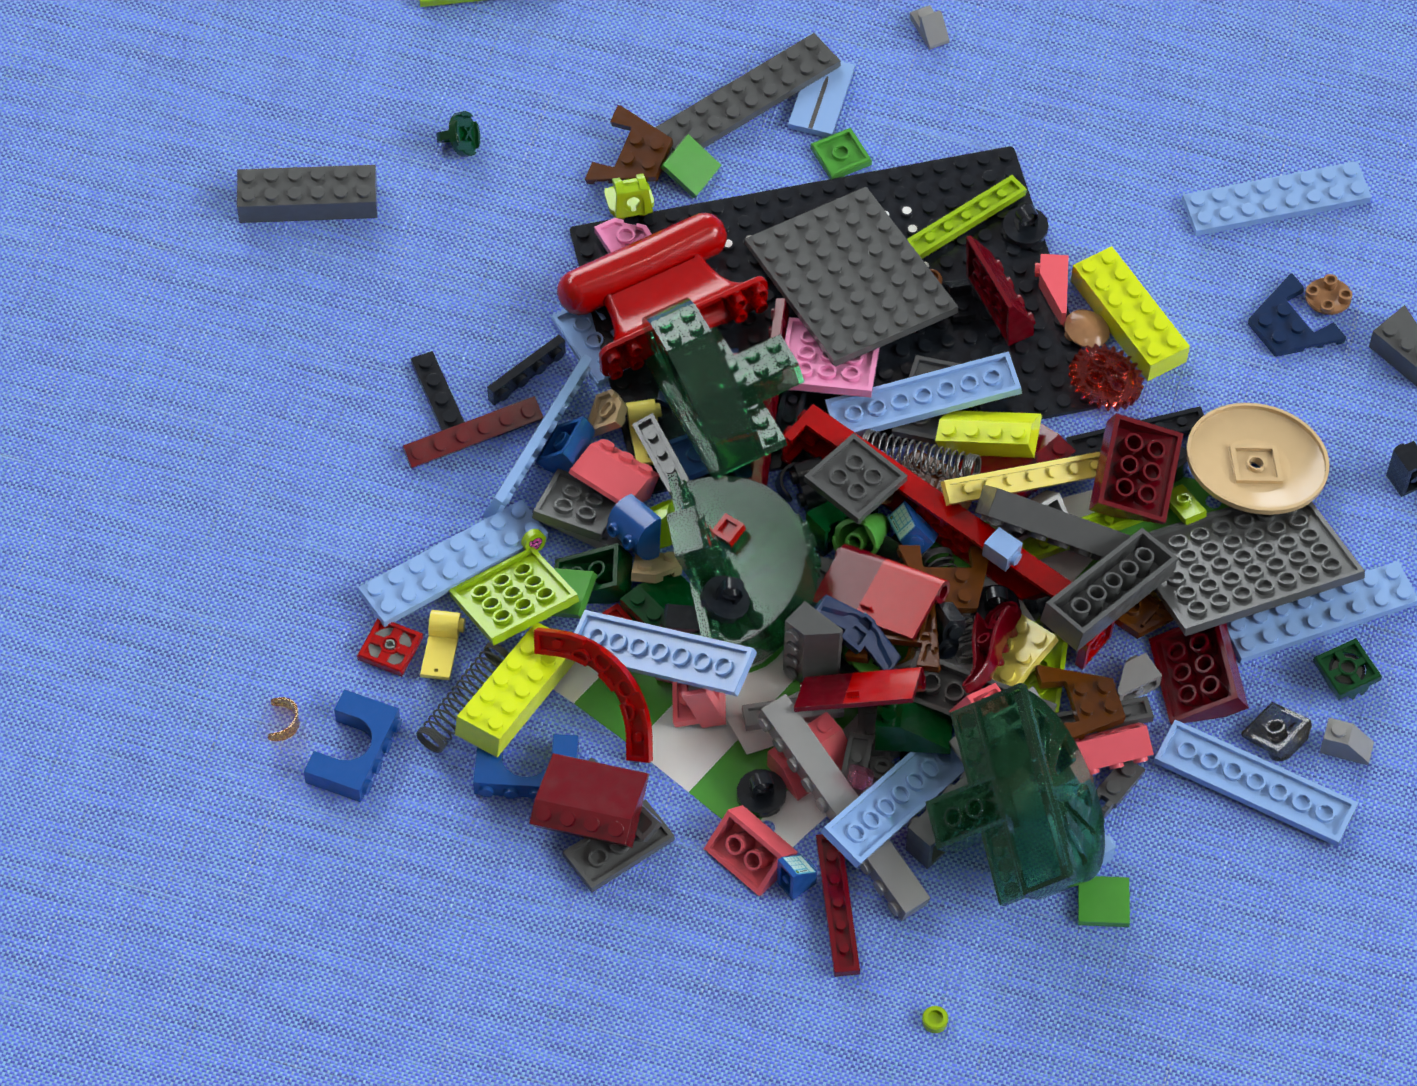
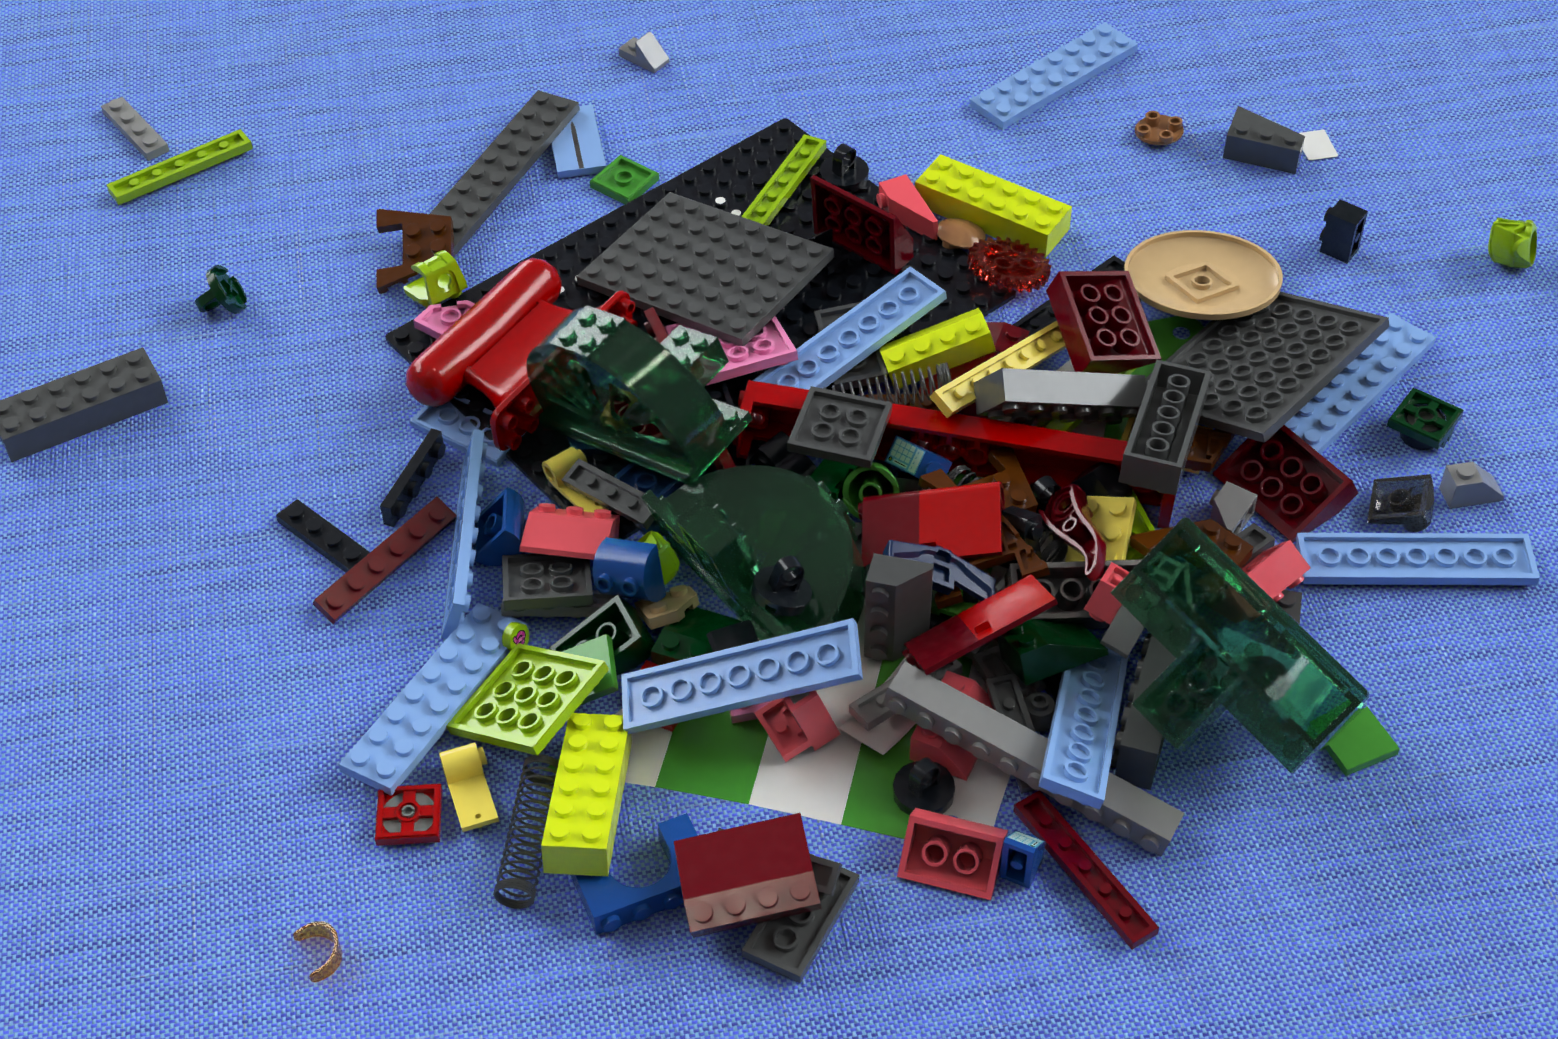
camera: 25 degrees left, 10 degrees down
(355, 776) = (441, 978): blue arch -> none
(607, 412) = (528, 478): tan plate -> none
(615, 676) = (700, 724): red plate -> none
(690, 166) = (481, 237): bright green tile -> none
(728, 529) = (745, 518): plate -> none
(860, 776) = (1033, 717): clear pink plate -> none
(935, 1019) = (1271, 945): lime tile -> none
(1002, 549) = (1033, 433): light blue brick -> none
(1186, 505) = (1170, 342): lime plate -> none
(1283, 328) = (1139, 170): dark blue wing -> none

